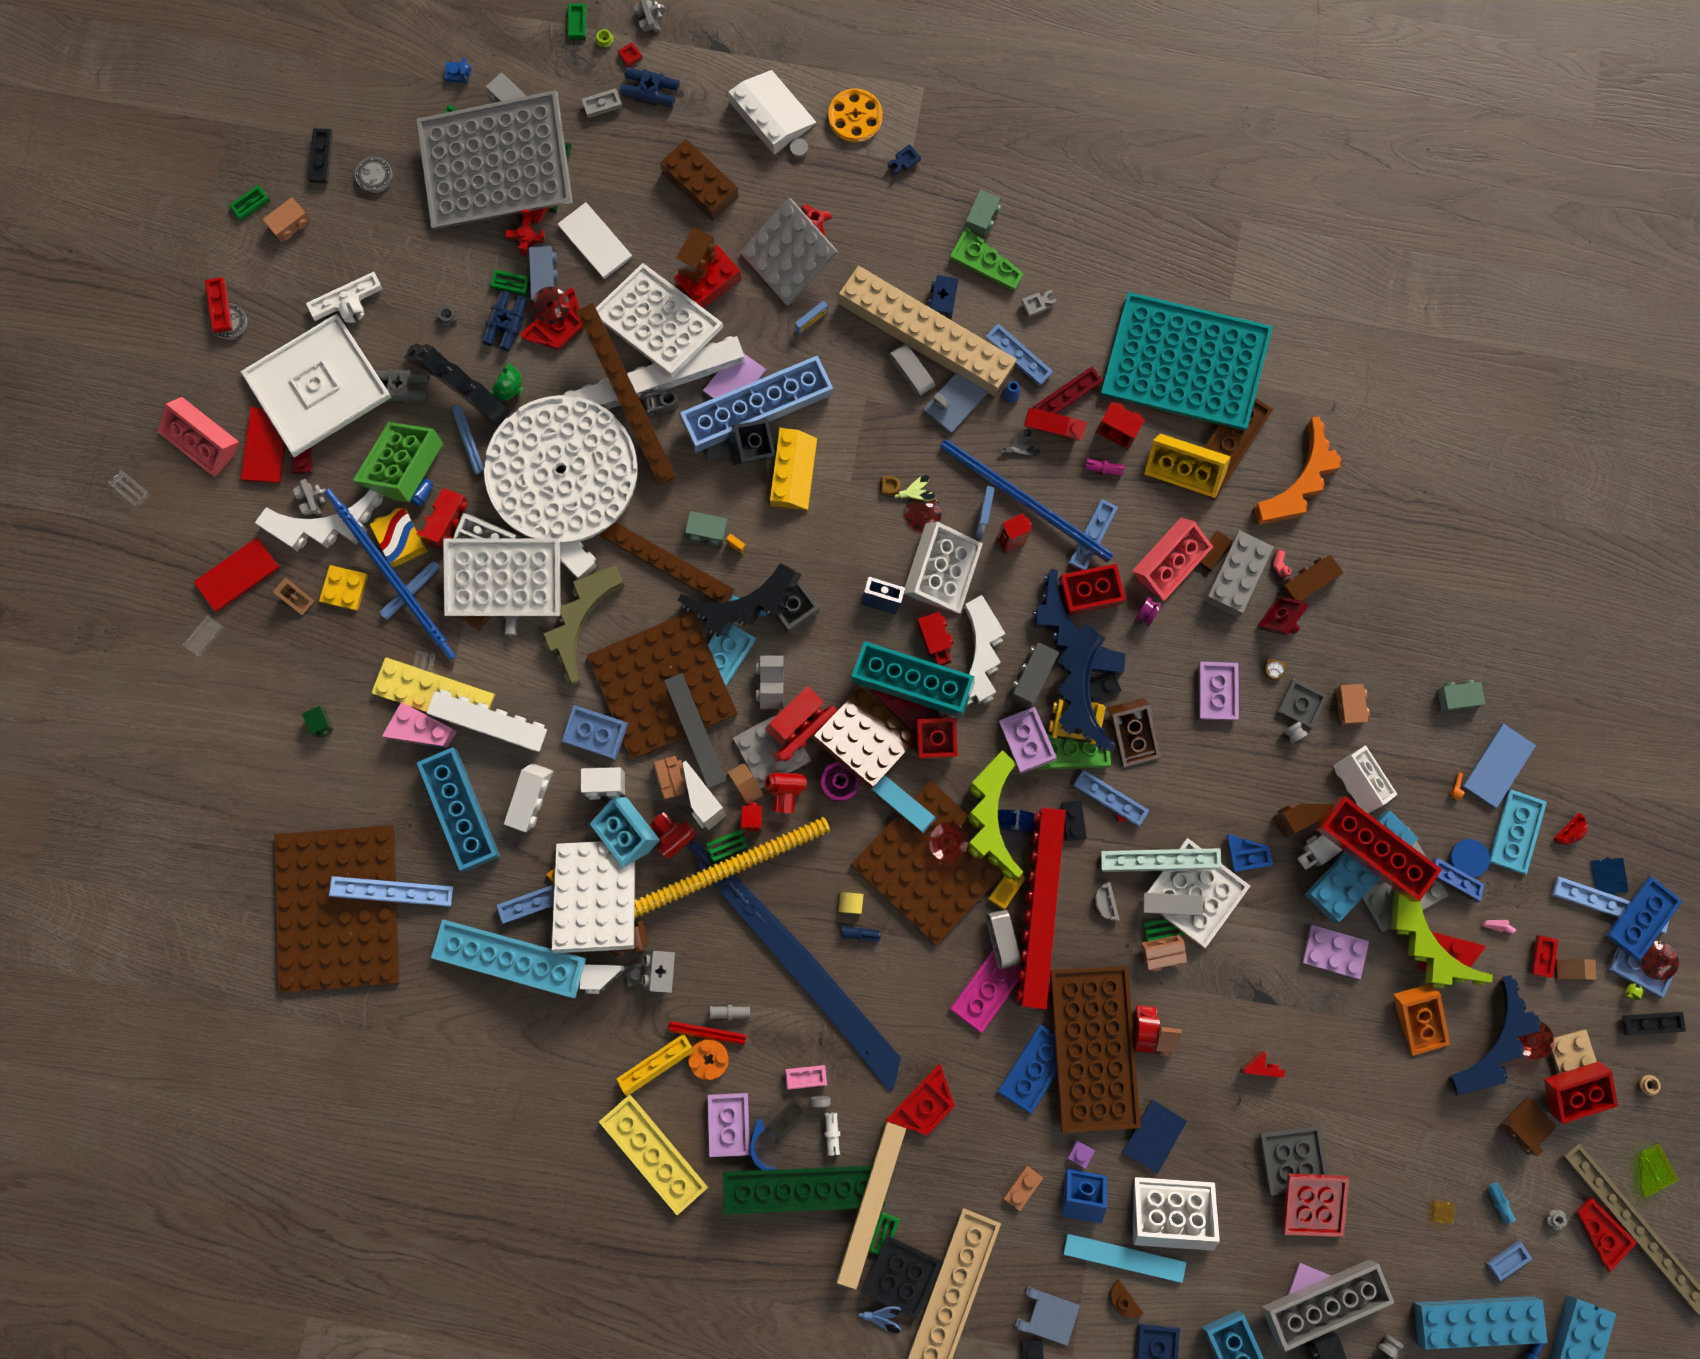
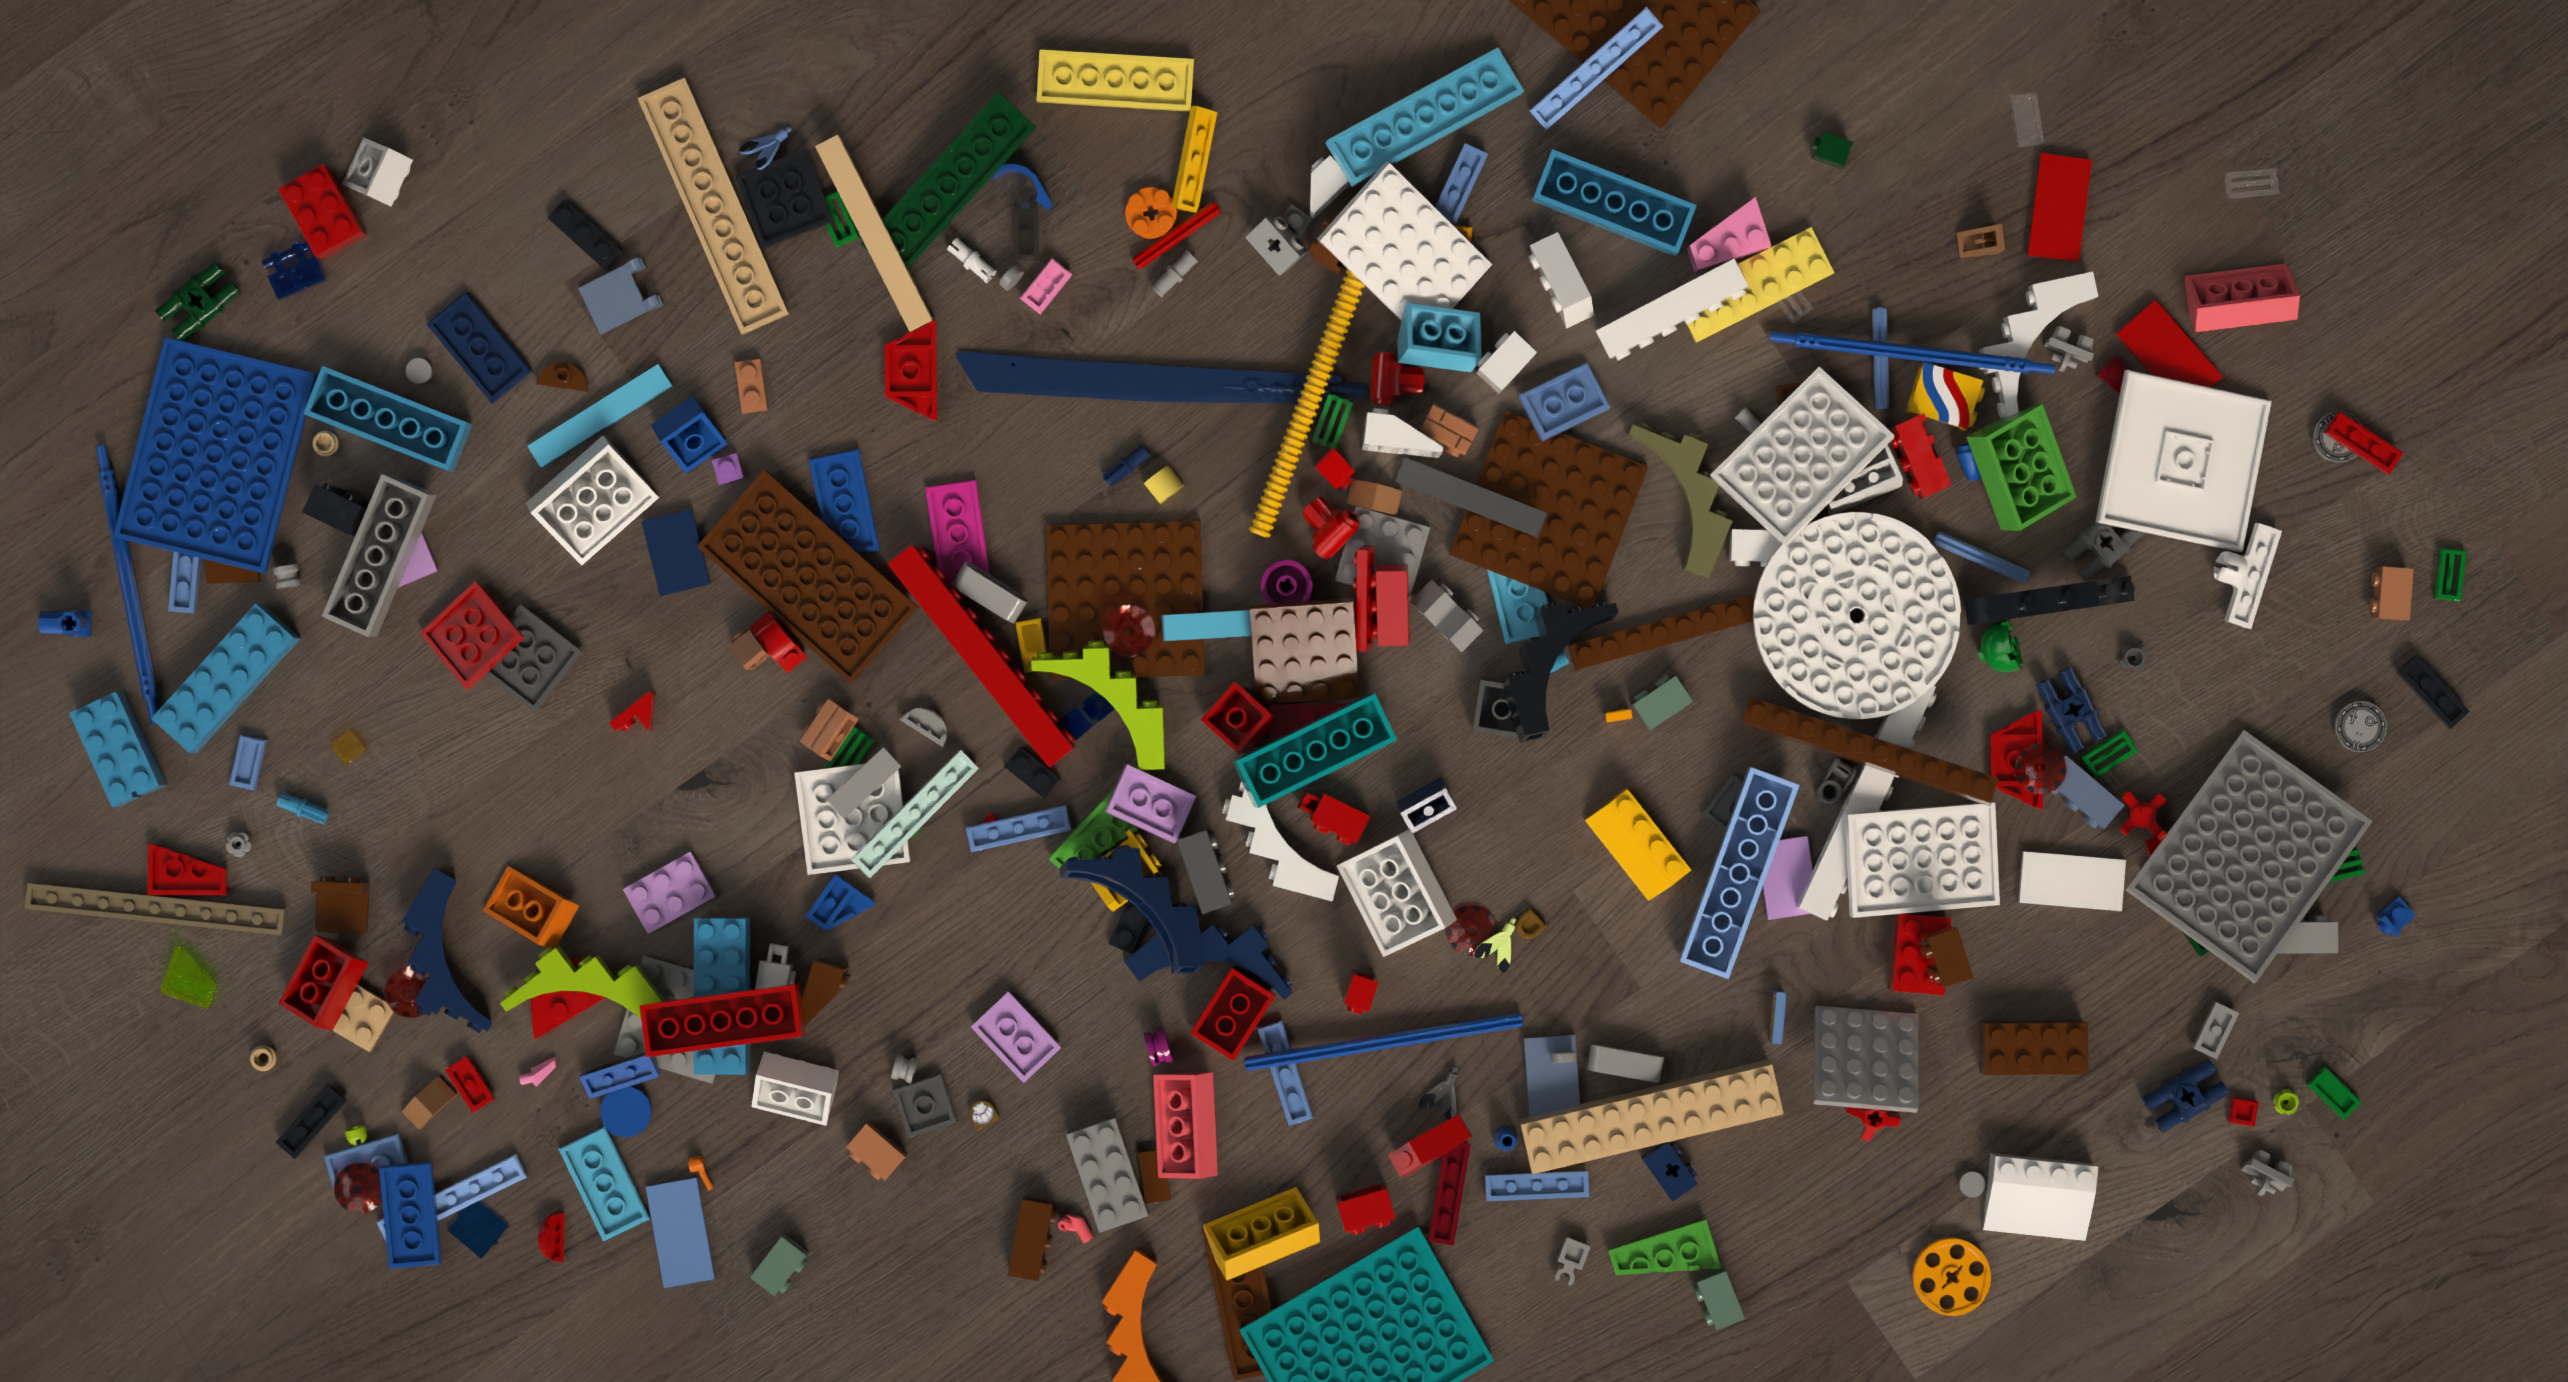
camera: 145 degrees right, 10 degrees up
(343, 588) = (1945, 297): yellow plate -> none
(728, 1124) = (1073, 174): lavender plate -> none
(751, 442) = (1702, 827): black slope -> none
(905, 158) = (1853, 1281): dark blue plate -> none
(984, 512) = (1409, 983): medium blue tile -> none
(1104, 467) = (1340, 1153): dark pink pin -> none
(1134, 731) = (1058, 915): reddish brown slope -> none
(1283, 616) = (1024, 1172): dark red tile -> none

